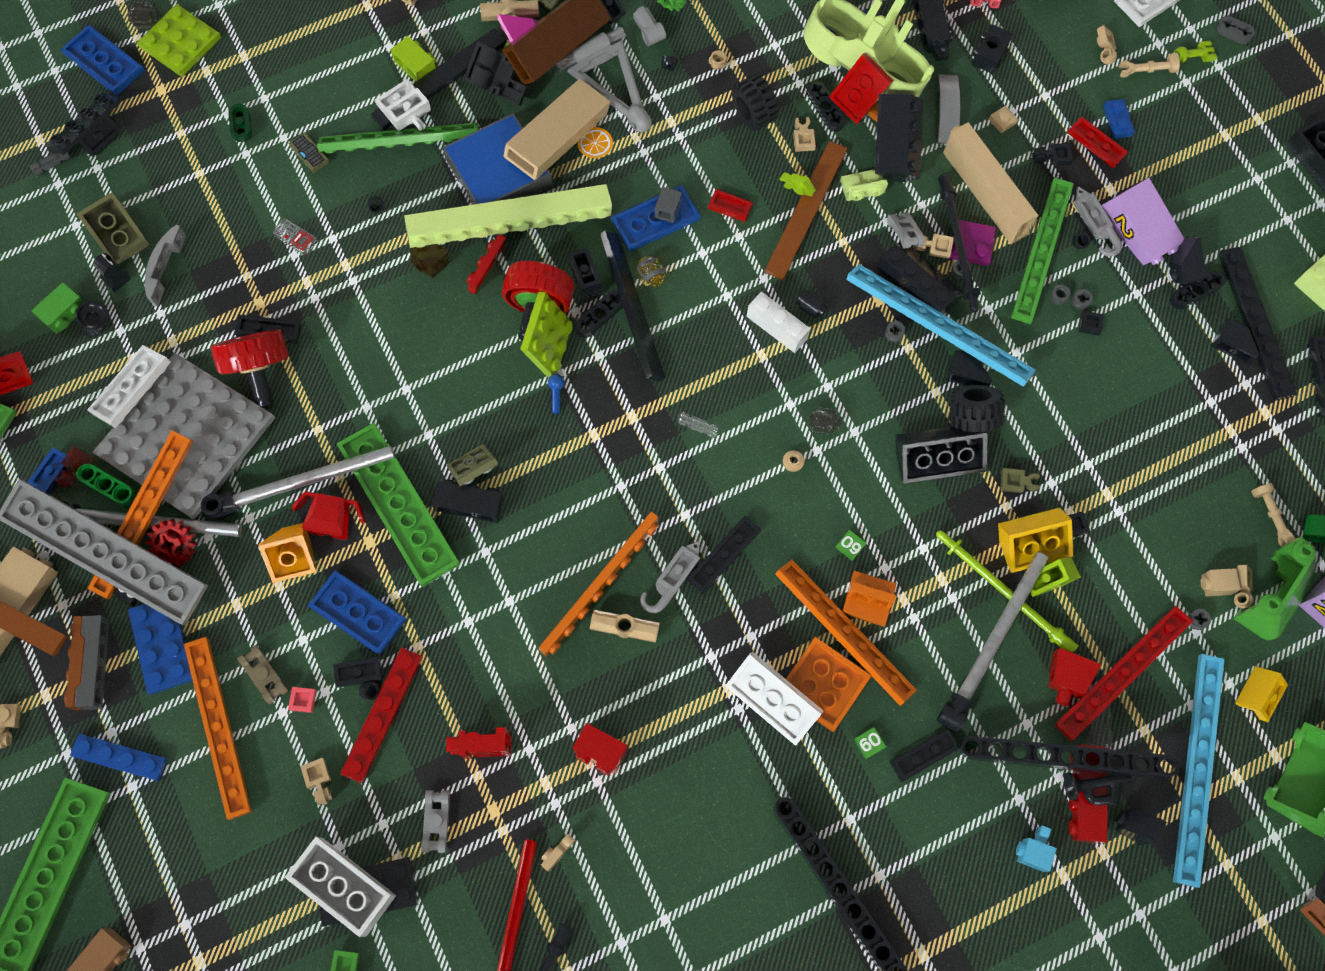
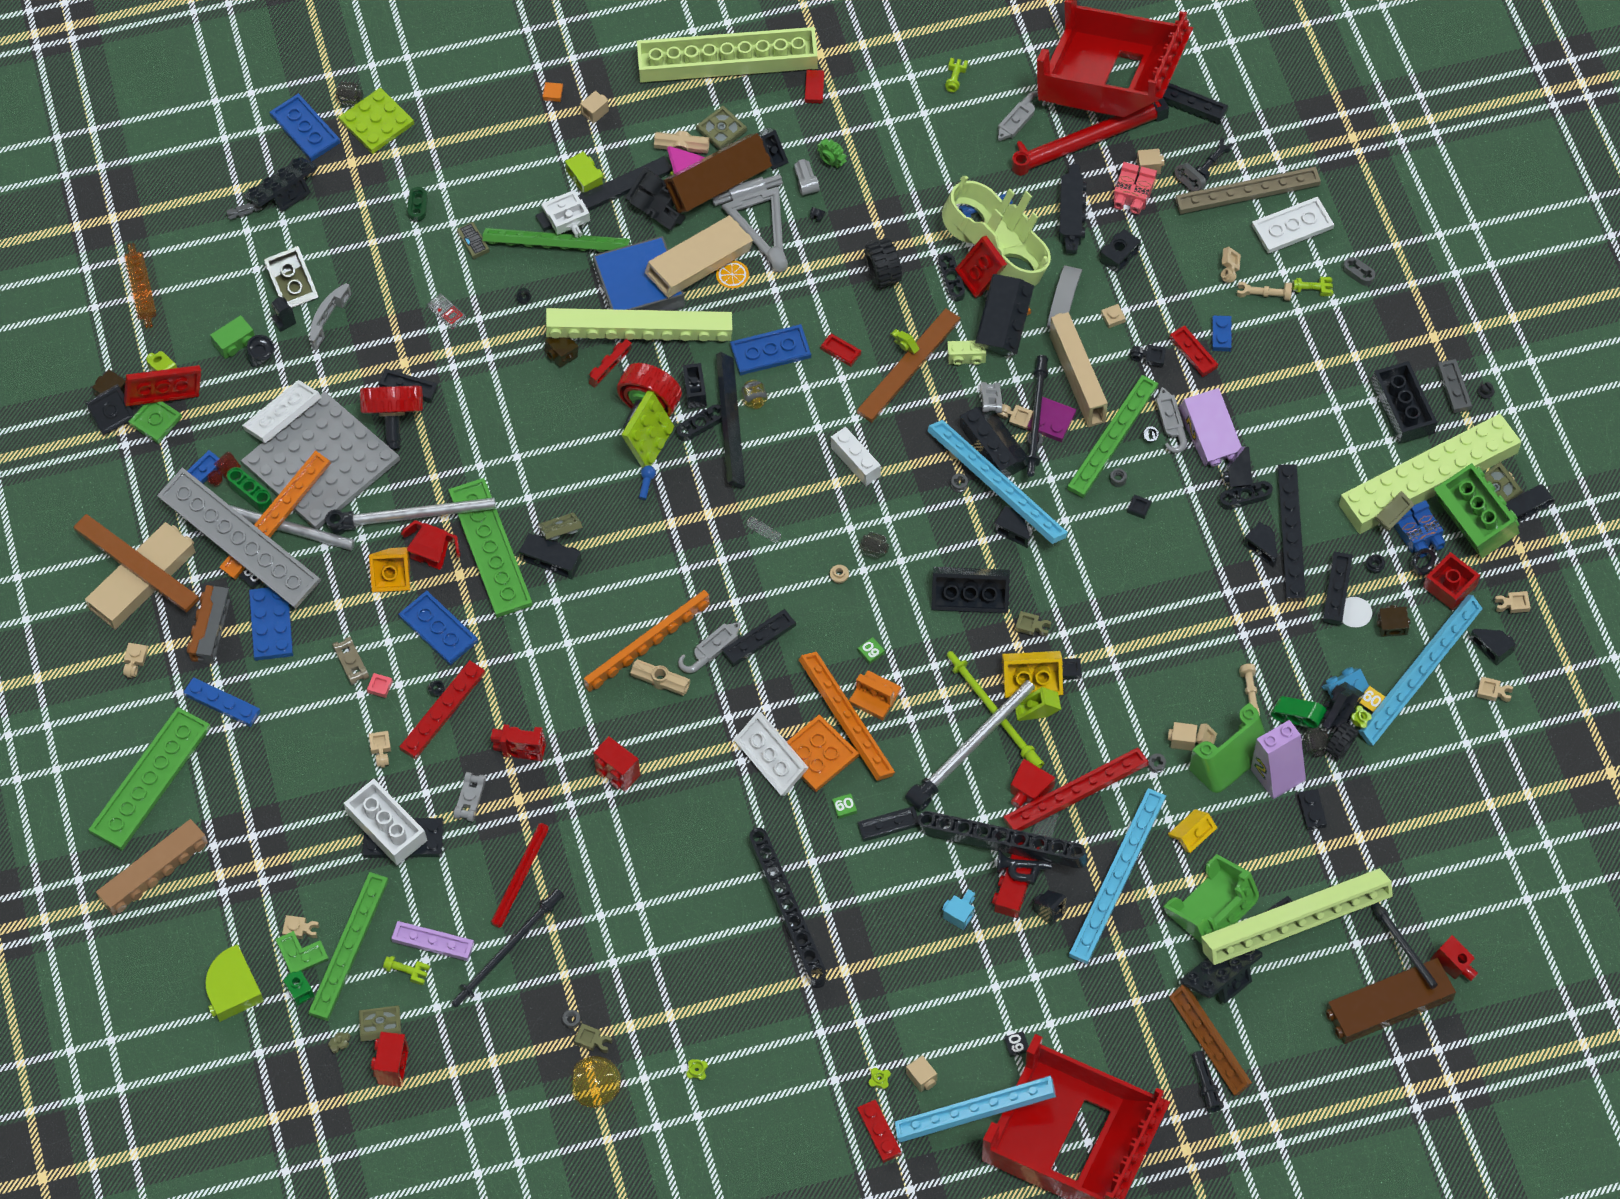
camera: 15 degrees right, 10 degrees down
(174, 533) = (294, 536): red gear -> none
(217, 728) = (306, 693): orange plate -> none
(357, 672) = (427, 672): black plate -> none
(552, 856) = (562, 838): tan plate -> none
(668, 204) = (782, 339): dark grey brick -> none
(718, 56) = (862, 215): tan plate -> none
(803, 136) = (923, 301): tan plate -> none
(812, 304) = (890, 446): black brick -> none
(977, 408) = (1008, 556): black tyre -> none
(1076, 299) = (1140, 489): dark grey bush -> none

